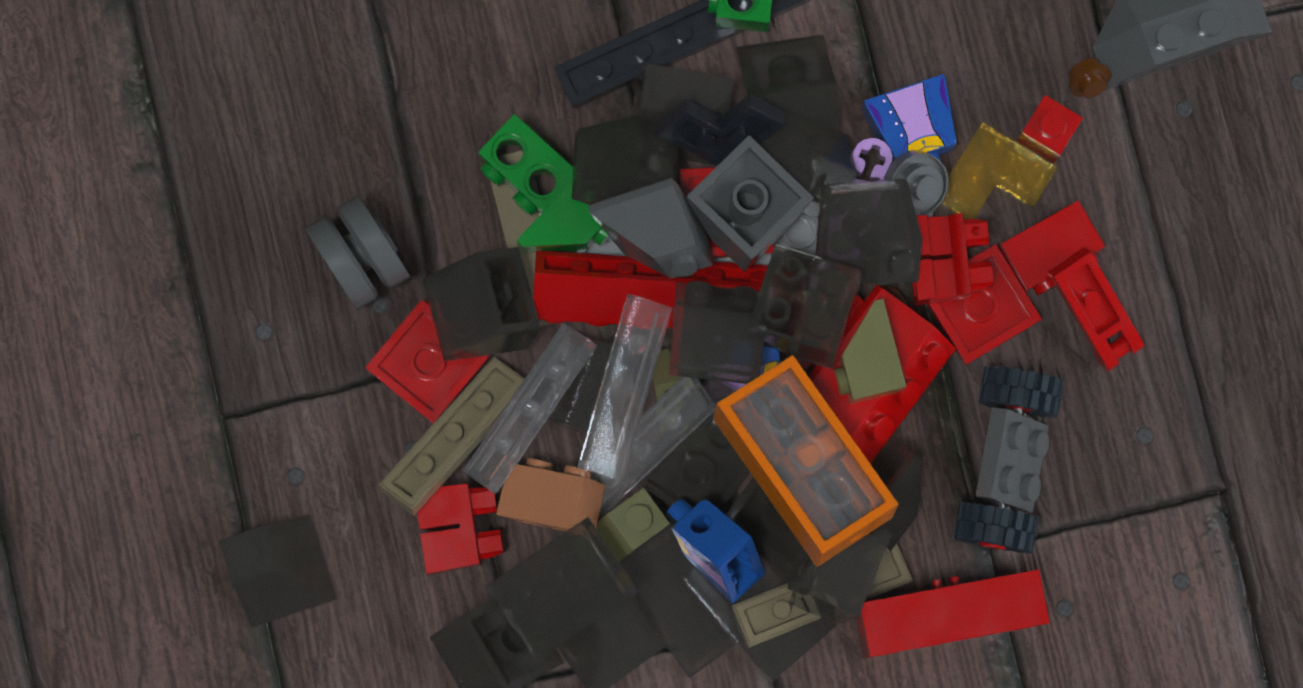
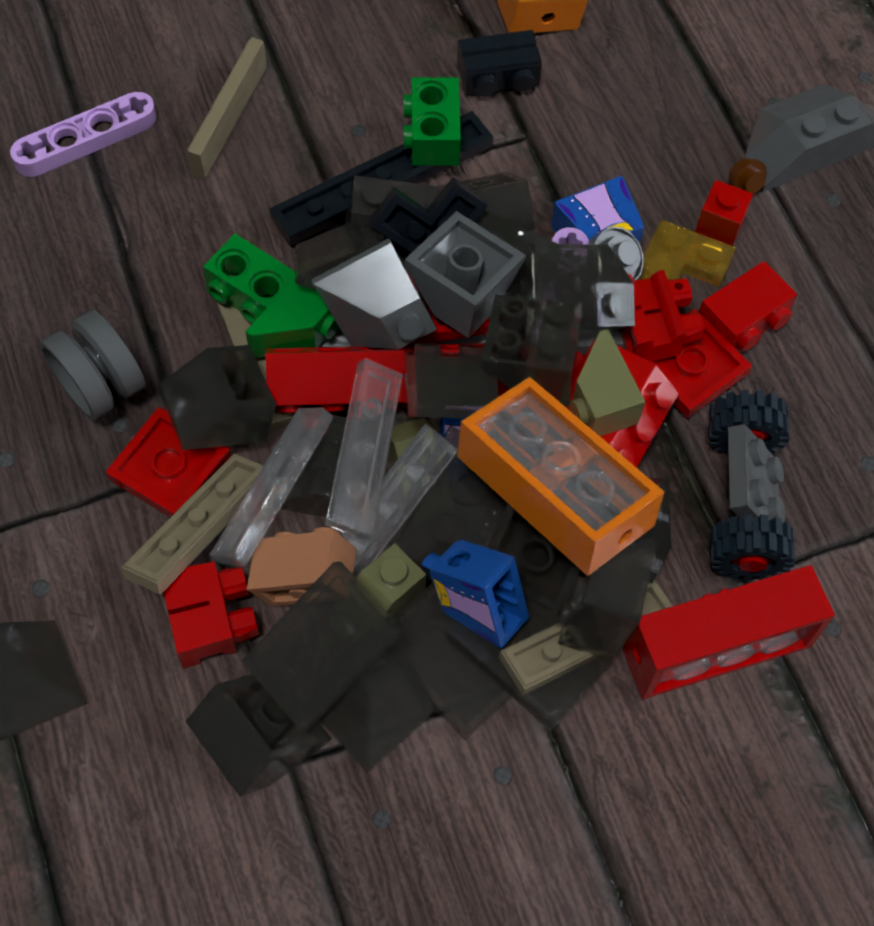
camera: 10 degrees left, 20 degrees down
(1096, 308) = (802, 348): red plate -> none

